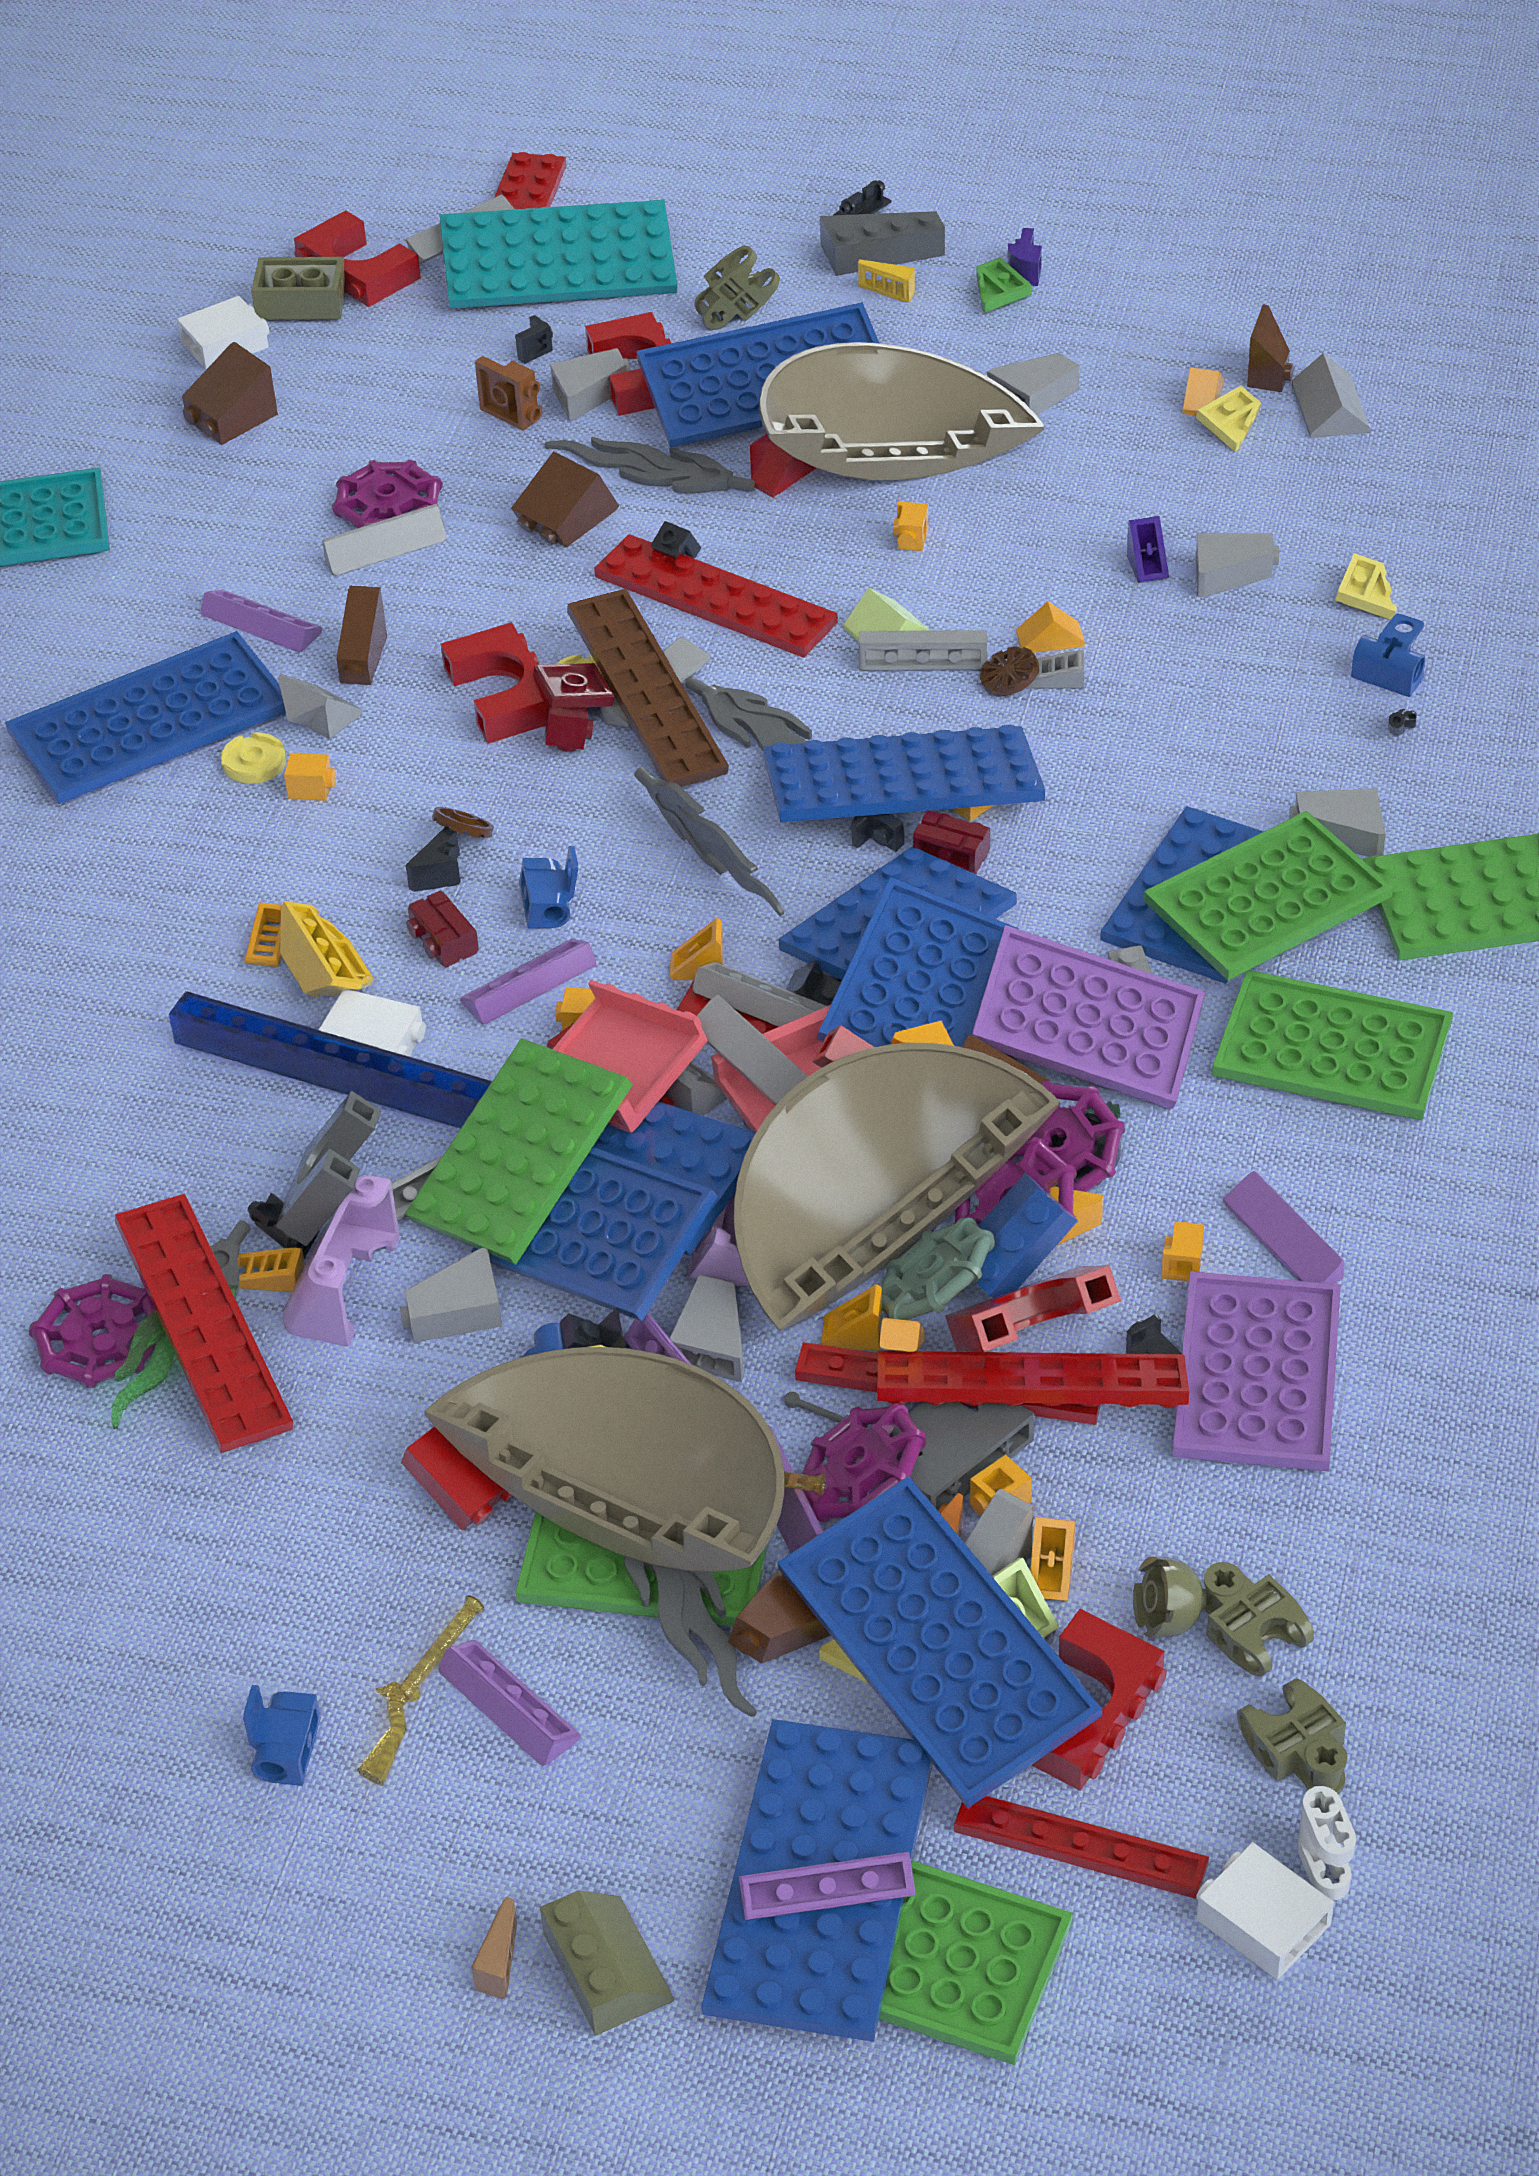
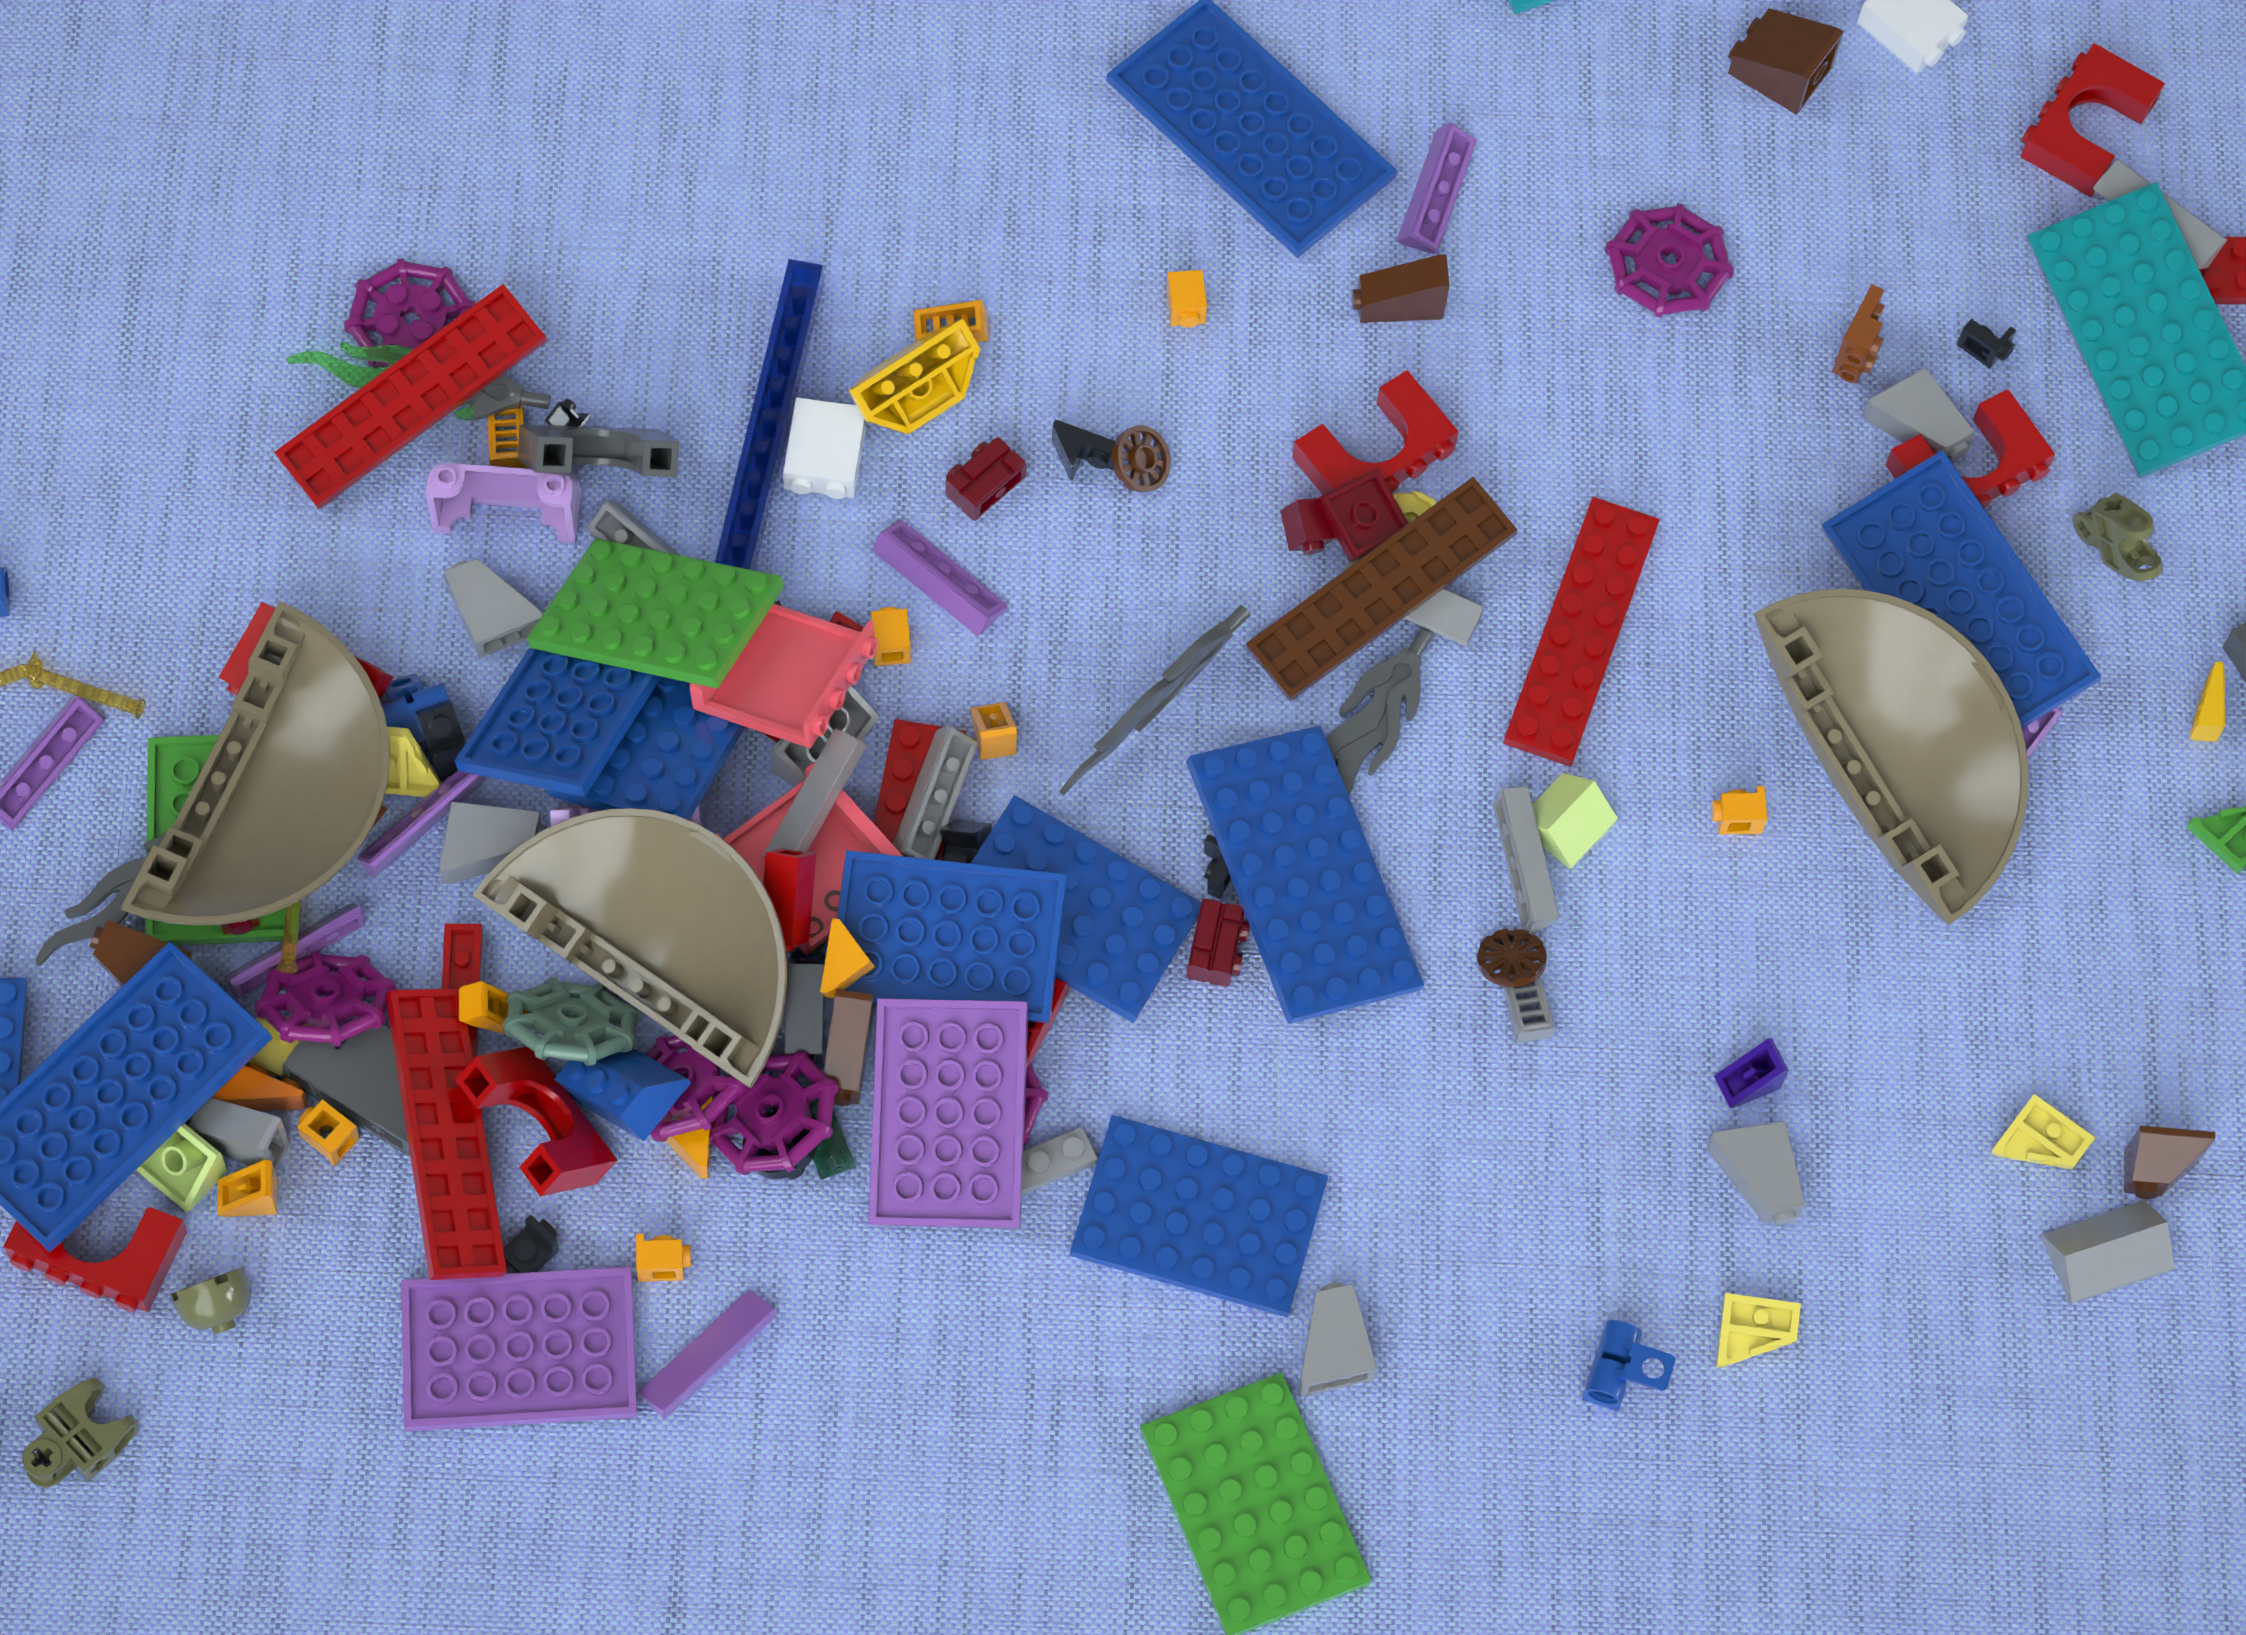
camera: 70 degrees right, 20 degrees up
(253, 758) = (1215, 240): light yellow tile -> none
(299, 288) = (2006, 72): olive slope -> none
(316, 707) = (1300, 276): light grey slope -> none
(384, 540) = (1587, 276): light grey slope -> none
(548, 890) = (1056, 560): blue piece -> none
(563, 501) = (1688, 440): reddish brown slope -> none
(649, 466) = (1799, 519): dark grey piece -> none
(673, 540) = (1648, 566): black bracket -> none
(793, 1400) = (424, 932): dark grey hinge -> none
(855, 1322) = (516, 966): light orange slope -> none
(1039, 381) = (2046, 905): light grey slope -> none
(1050, 630) = (1595, 993): light orange slope -> none
(1201, 389) = (2090, 1097): light orange slope -> none
(1249, 1615) = (221, 1364): olive piece -> none
(1267, 895) = (1180, 1273): bright green plate -> none
(1333, 1044) = (984, 1372): bright green plate -> none
(1401, 719) = (1520, 1388): black arm -> none

